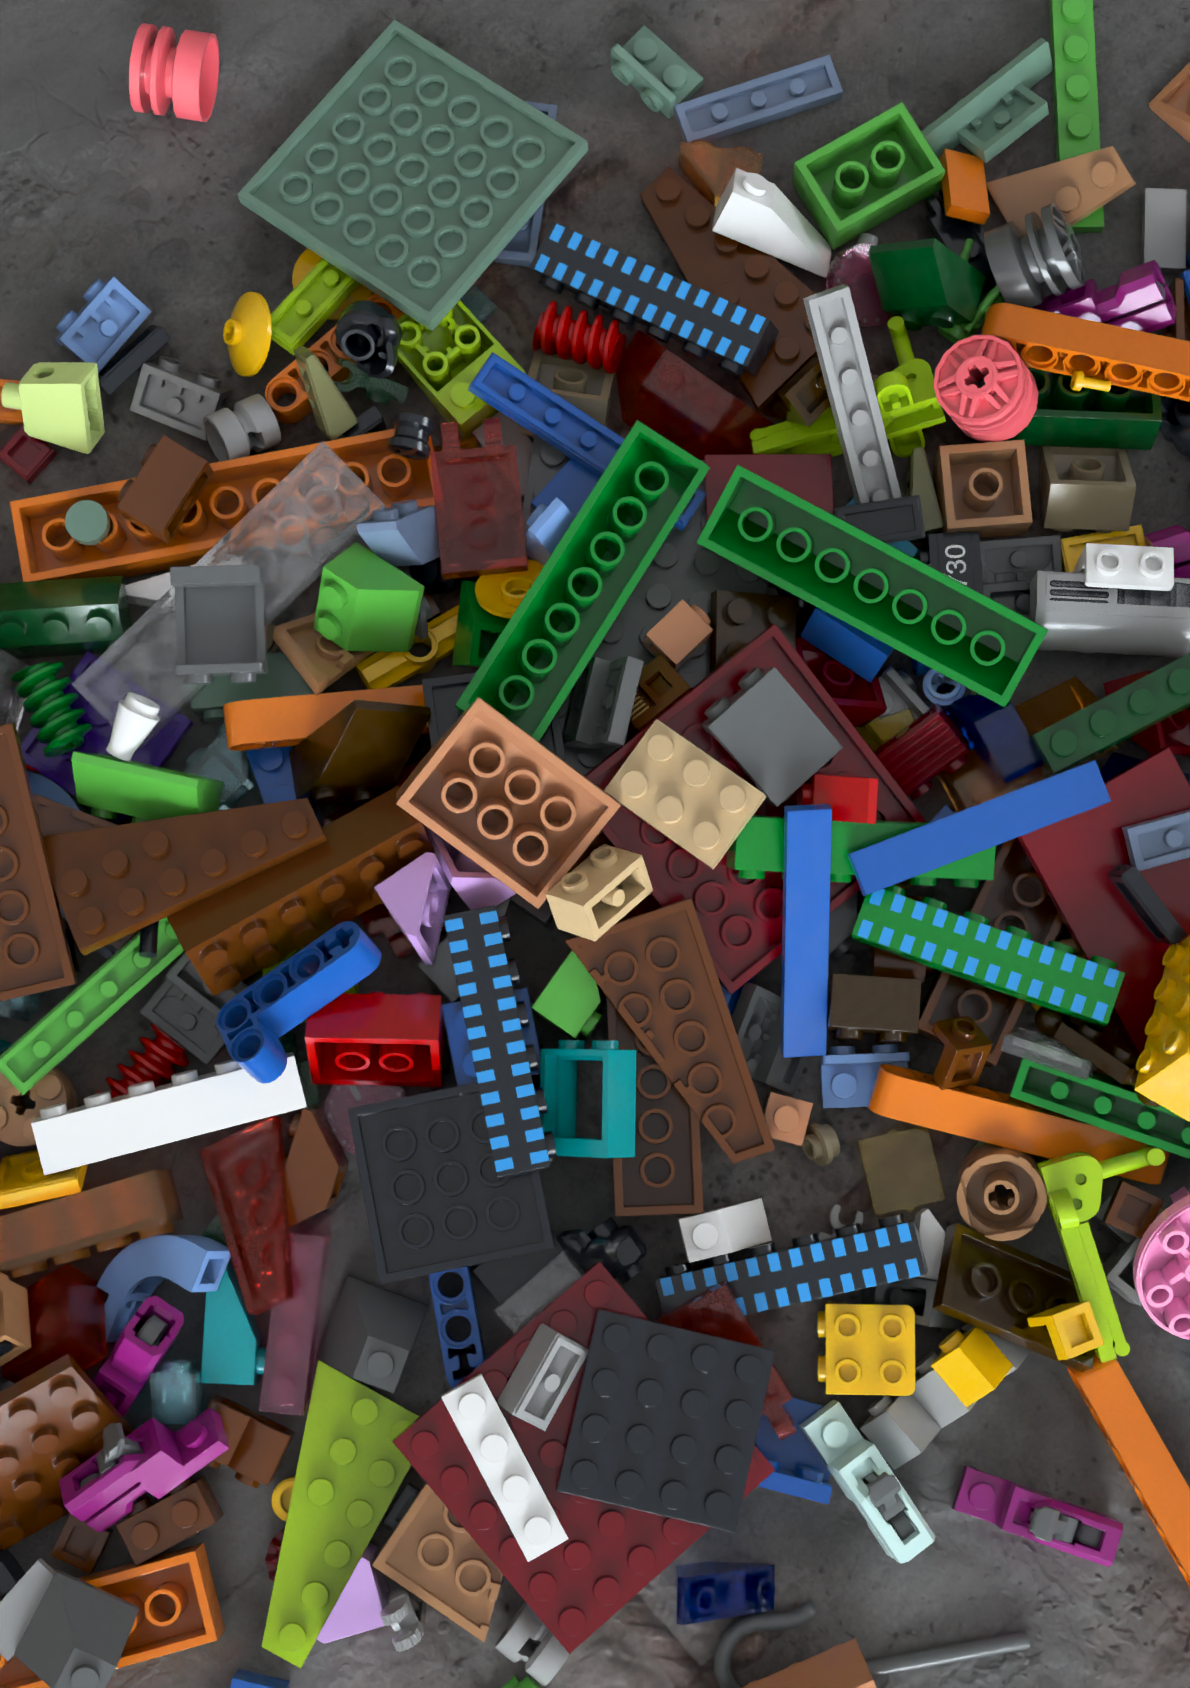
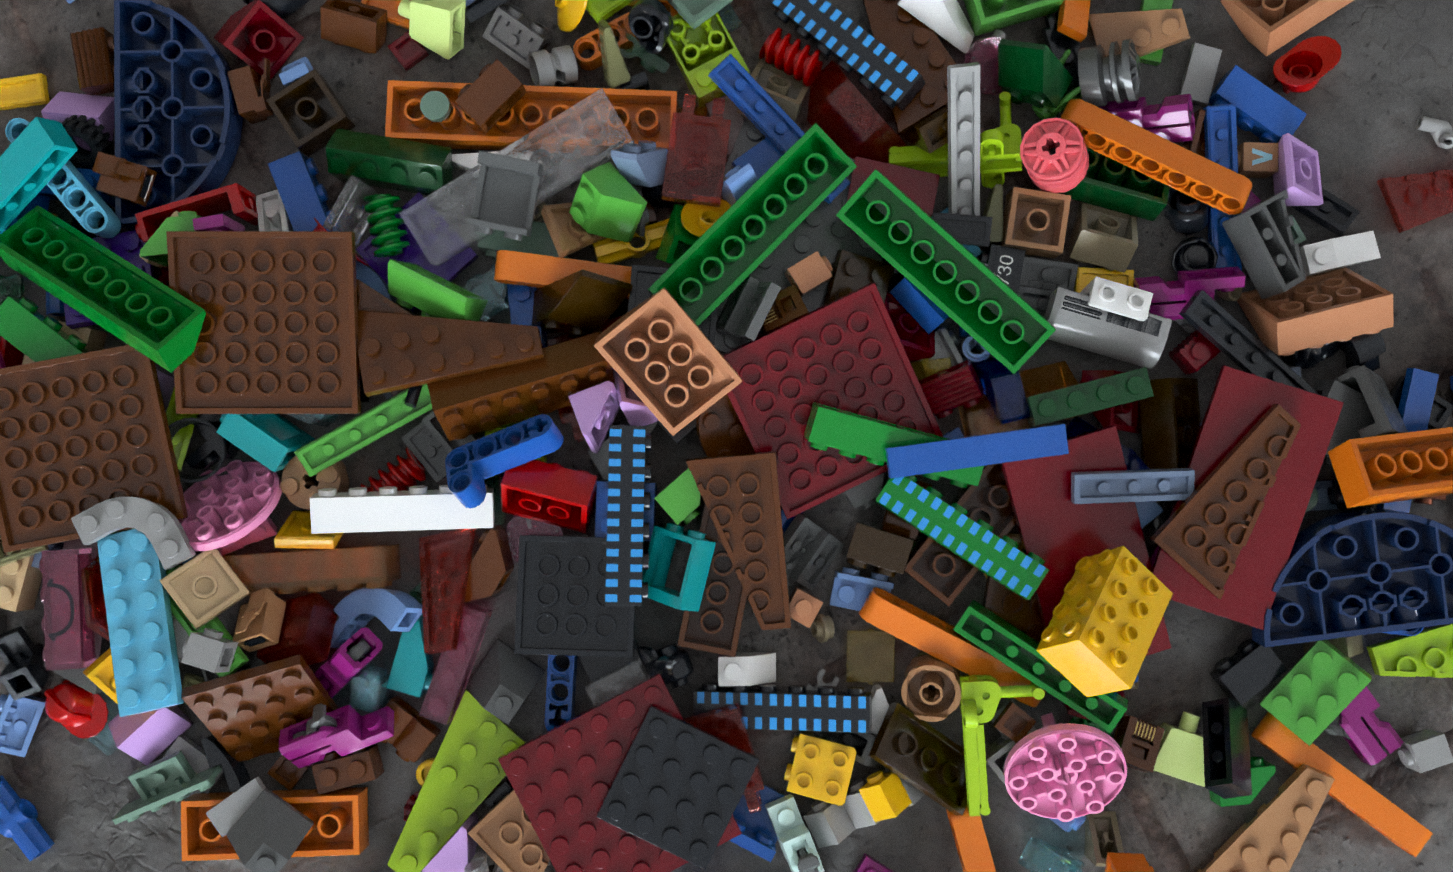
camera: 15 degrees right, 5 degrees up
(132, 724) = (433, 250): white cone -> none
(411, 435) = (663, 98): black wheel -> none
(504, 1467) = (566, 793): white plate -> none
(542, 1377) = (604, 741): light grey slope -> none
(599, 892) = (715, 434): tan brick -> none
(685, 794) = (787, 383): tan plate -> none
(771, 734) = (854, 356): dark grey panel -> none
(805, 929) = (846, 489): tile -> none
(849, 796) = (888, 409): red slope -> none
(963, 1053) = (929, 595): reddish brown bracket -> none
(1047, 1052) = (986, 608): clear tile -> none
(1070, 1328) = (955, 789): yellow panel -> none
(1079, 381) = (1118, 164): yellow piece -> none
(1088, 1042) = (1013, 607): dark brown plate -> none
(1146, 904) = (1074, 527): black tile -> none

